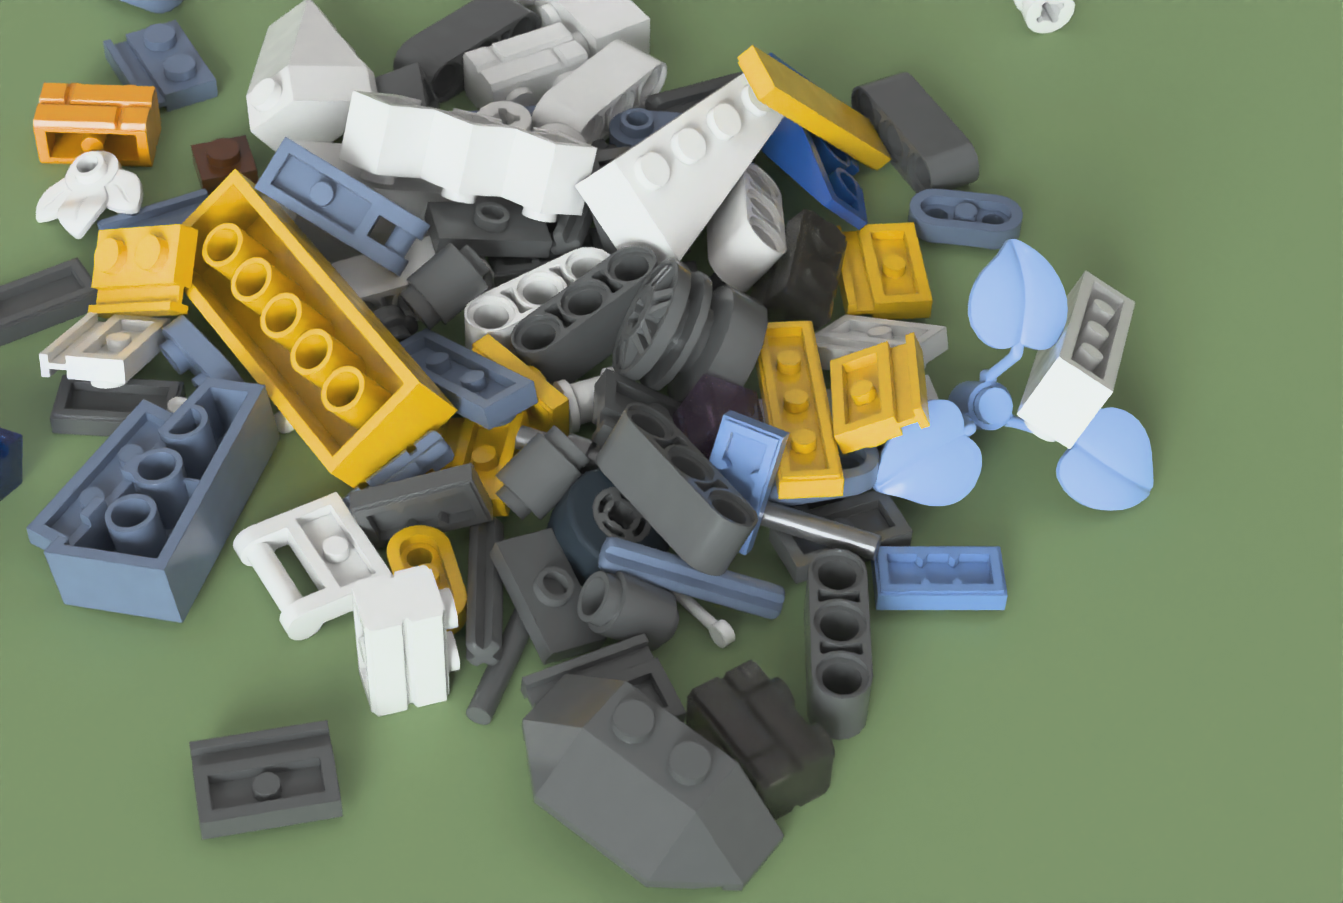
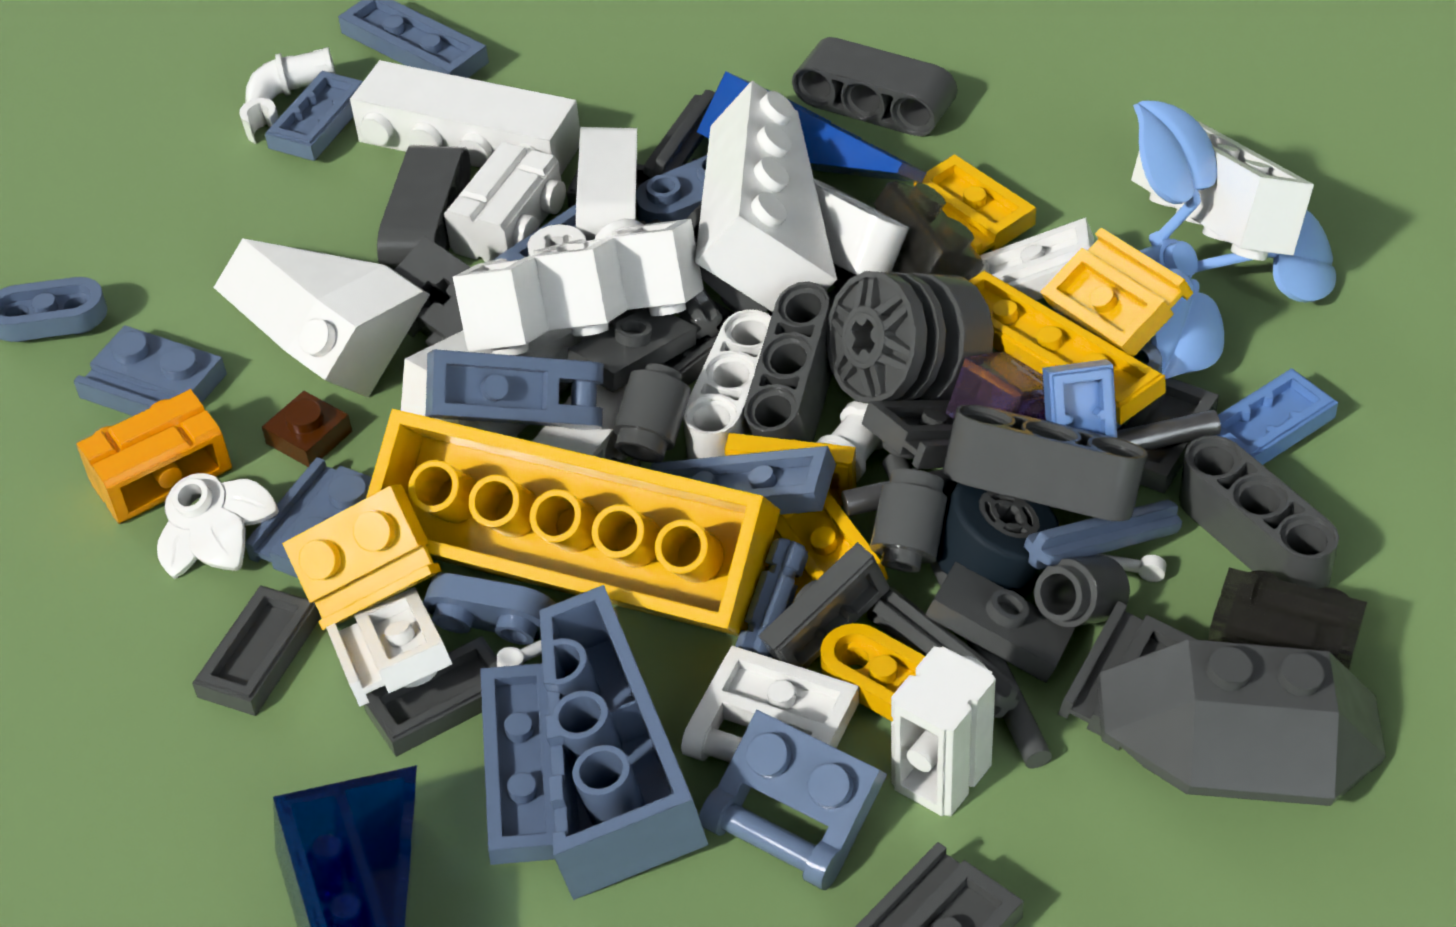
camera: 30 degrees left, 0 degrees up
(282, 617) = (804, 777): none -> sand blue plate
(813, 108) = (812, 96): yellow tile -> none
(965, 218) = (983, 130): sand blue plate -> none

